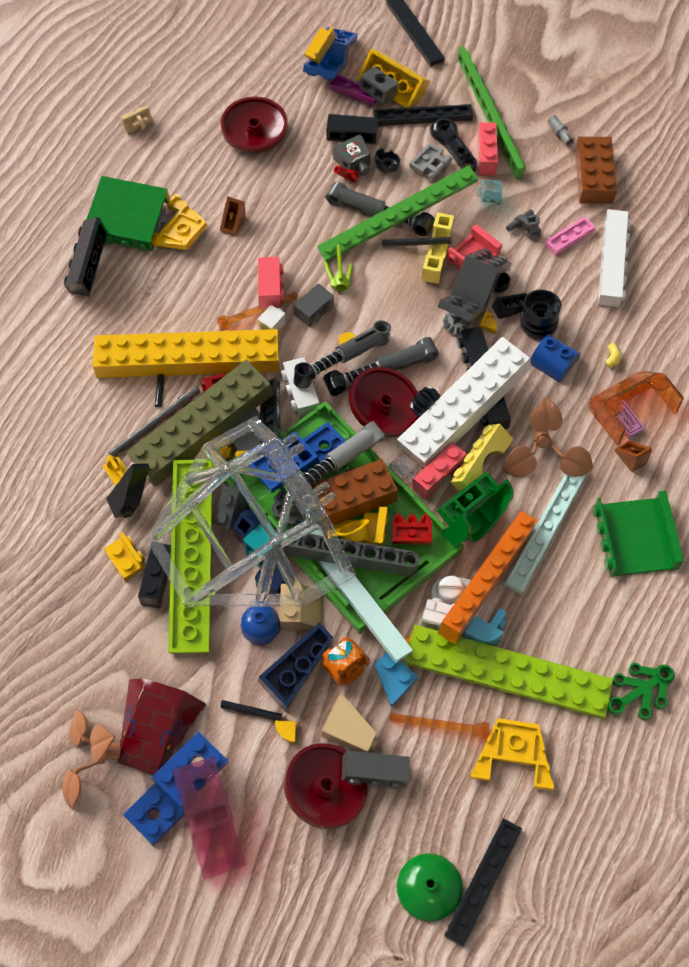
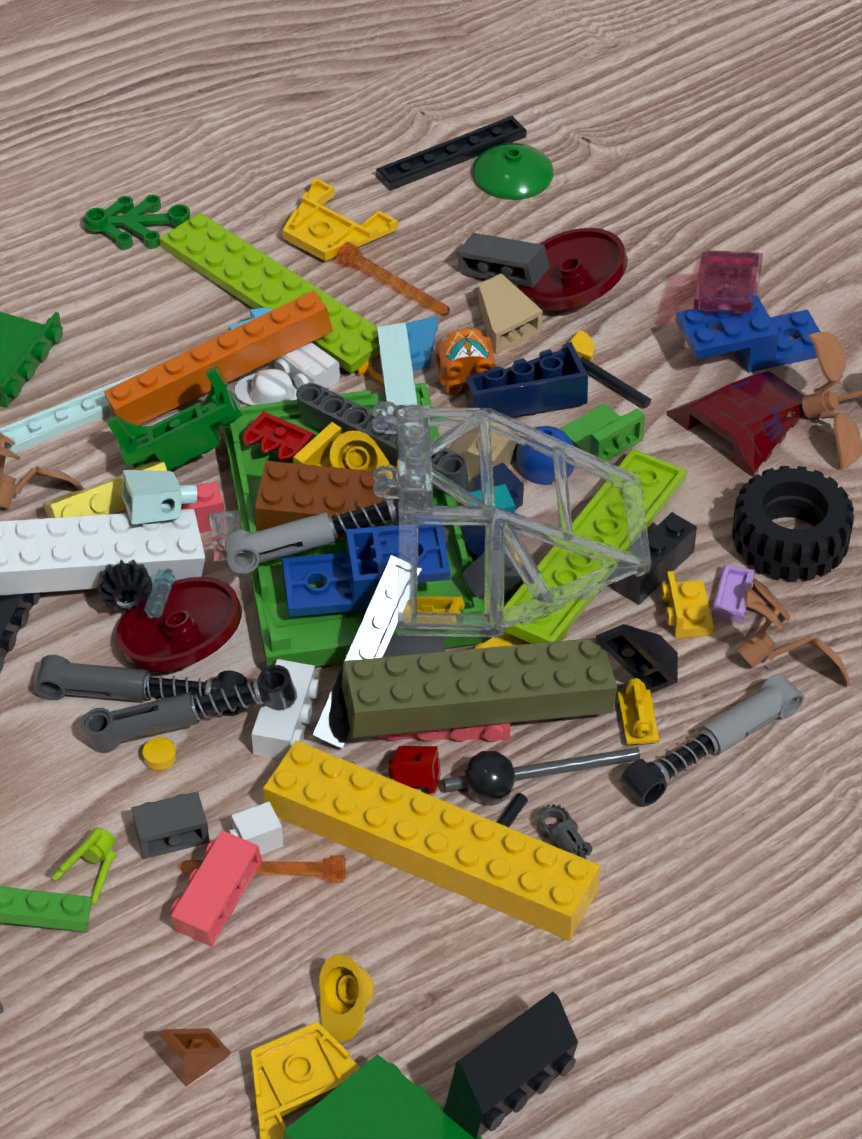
camera: 150 degrees left, 15 degrees down
(49, 515) = (774, 699): none -> piece
(63, 526) = (760, 643): none -> nougat plant
(77, 612) = (788, 551): none -> black tyre
(103, 582) = (731, 593): none -> lavender tile
(125, 389) = (565, 833): none -> dark grey connector
(174, 396) = (489, 777): none -> black hair
(180, 267) = (344, 996): none -> yellow piece
(234, 658) = (605, 432): none -> bright green bracket
(406, 410) = (159, 594): none -> clear light blue axle
(442, 441) = (154, 495): none -> light aqua torso

